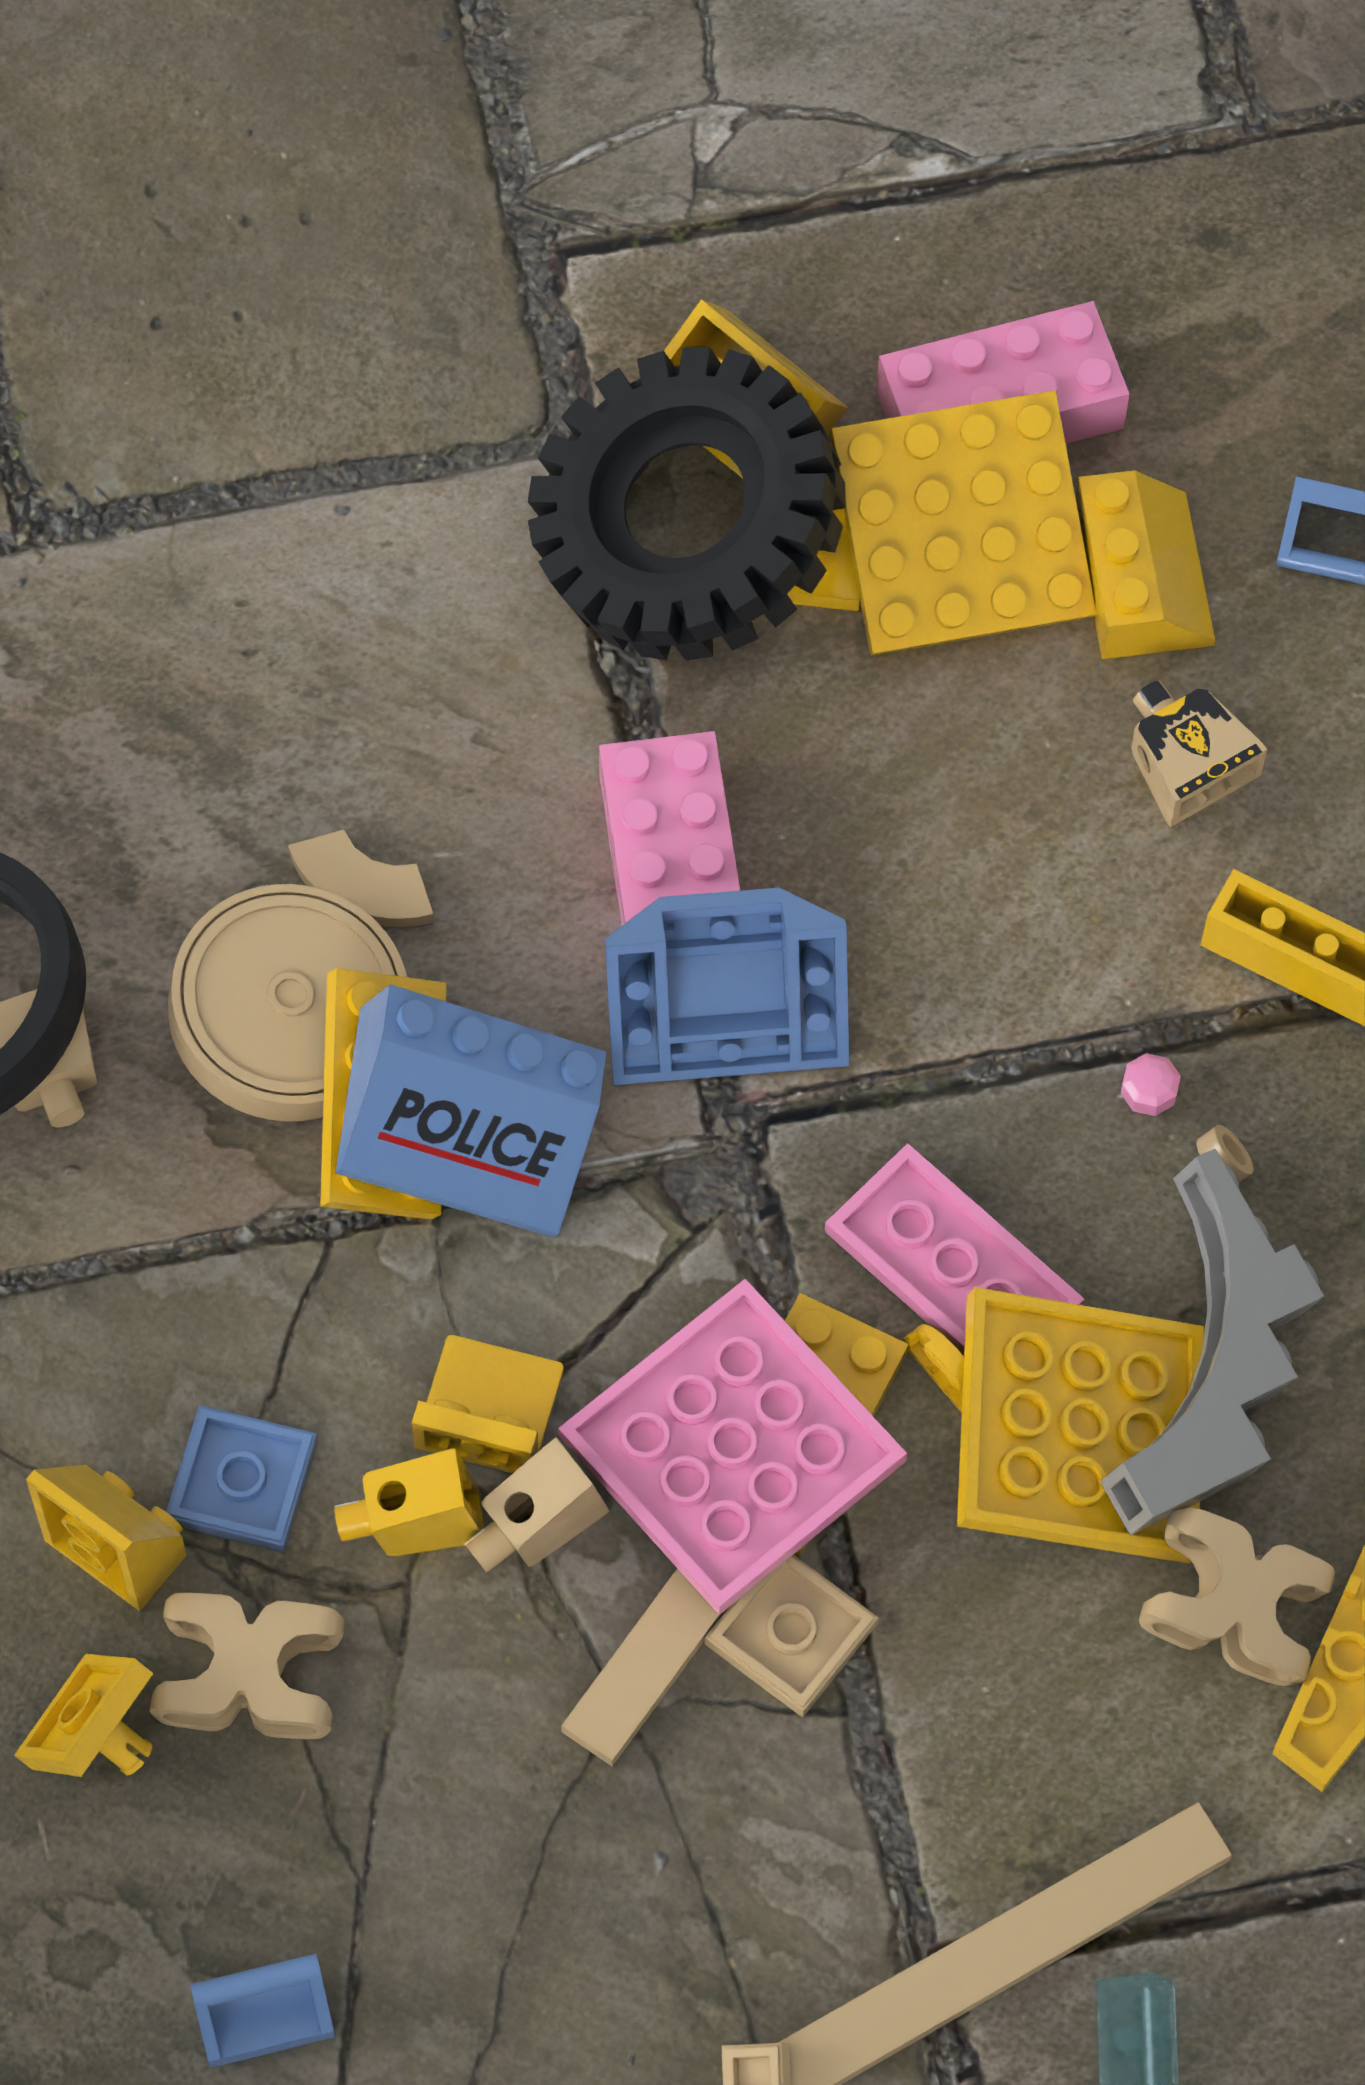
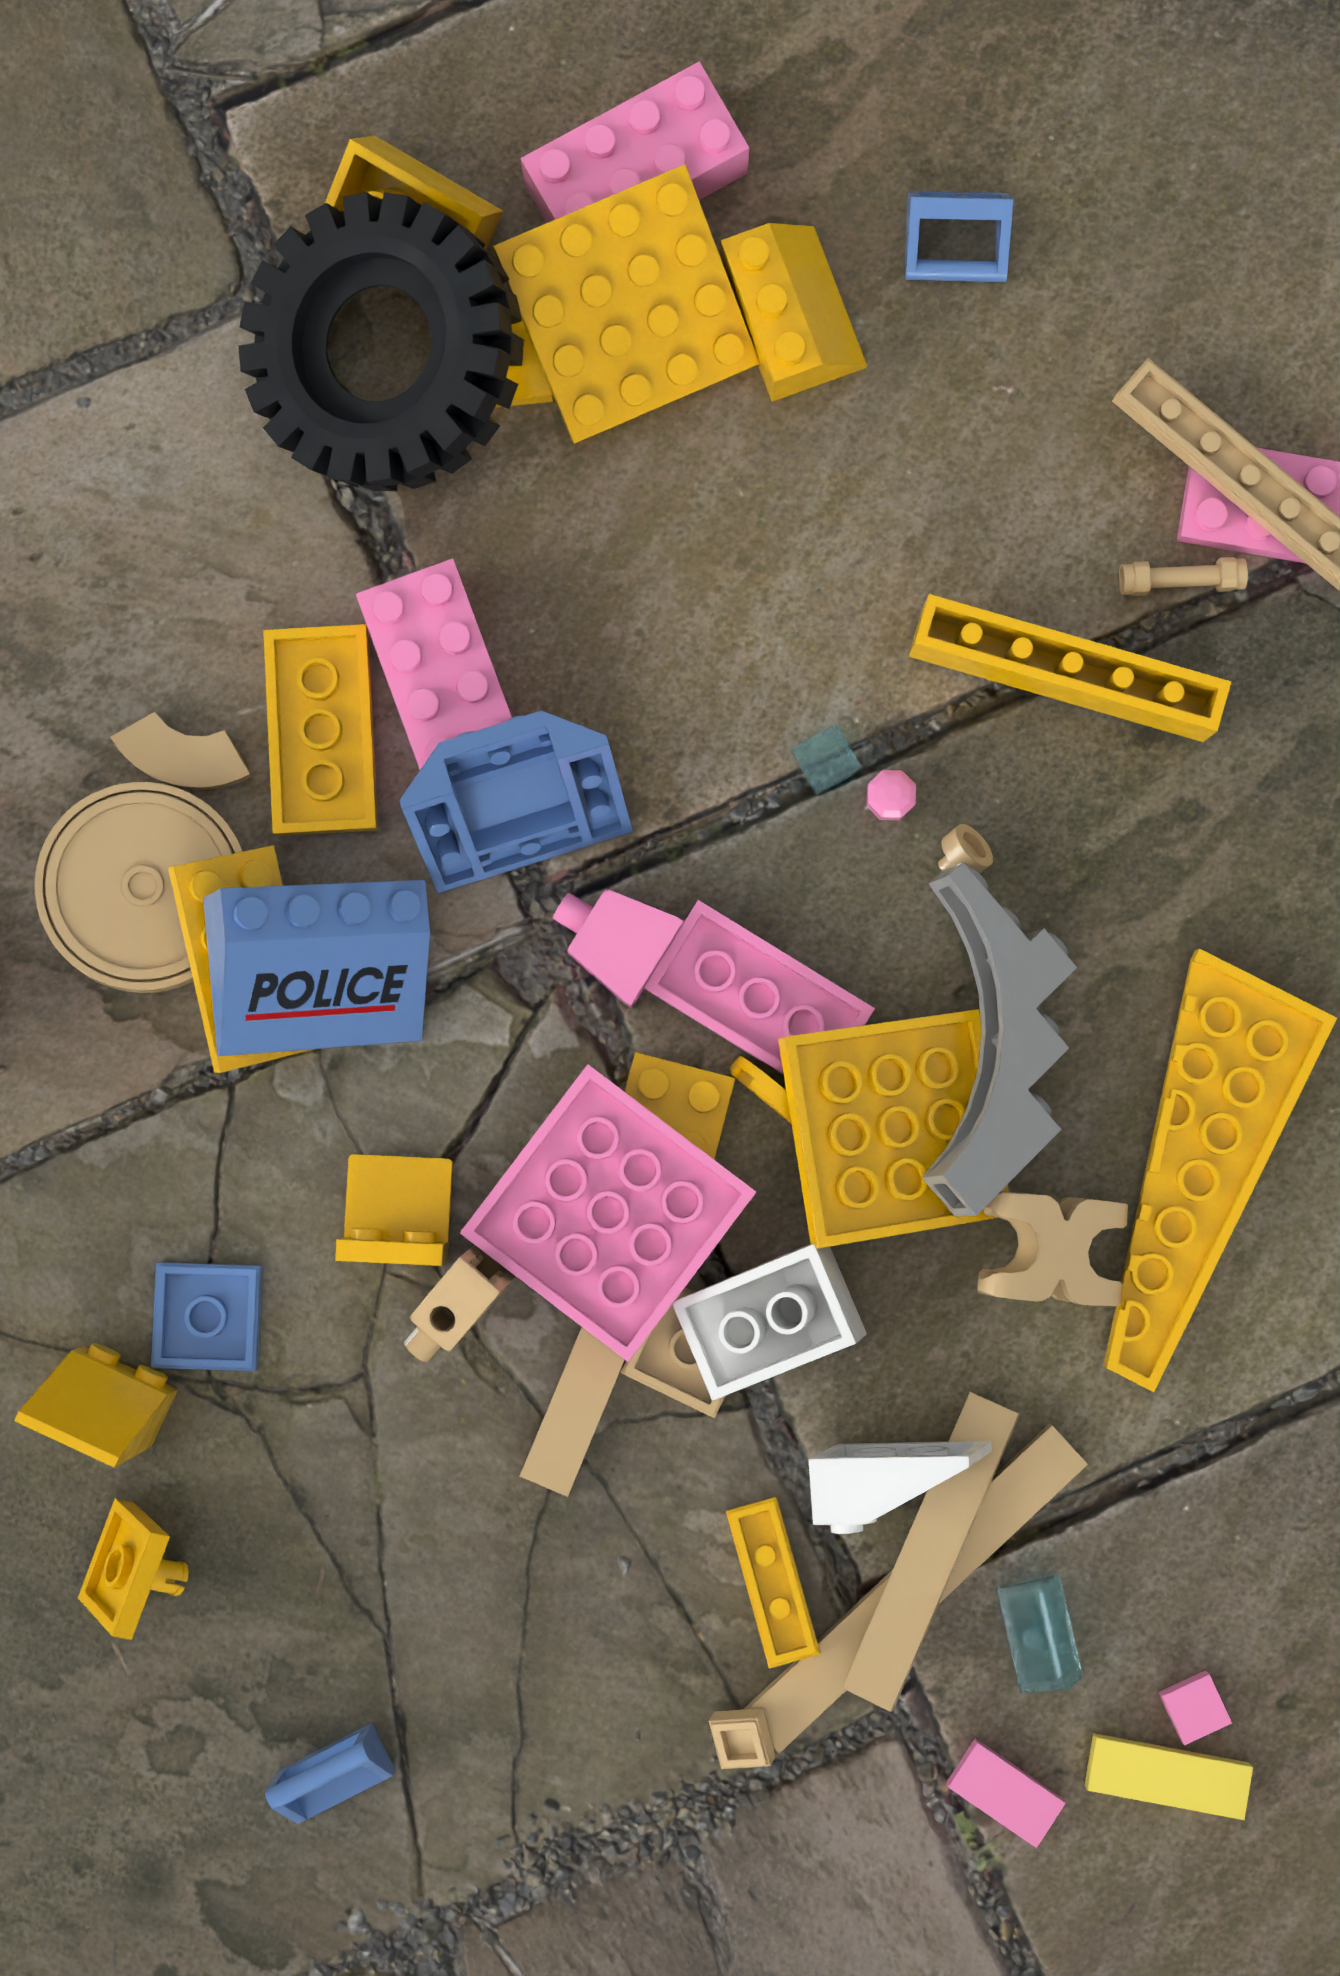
camera: 10 degrees left, 20 degrees up
(247, 1666) = (249, 1484): tan piece -> none
(415, 1506) = (355, 1322): yellow torso -> none
(523, 886) = (320, 730): none -> yellow plate
(806, 1168) = (618, 940): none -> bright pink torso
(832, 1908) = (773, 1582): none -> yellow tile
(893, 1605) = (769, 1319): none -> white slope
(995, 1793) = (867, 1480): none -> white slope
(1025, 1906) = (928, 1560): none -> tan tile
(1085, 1032) = (826, 759): none -> clear light blue tile
(1192, 750) = (866, 476): tan torso -> none

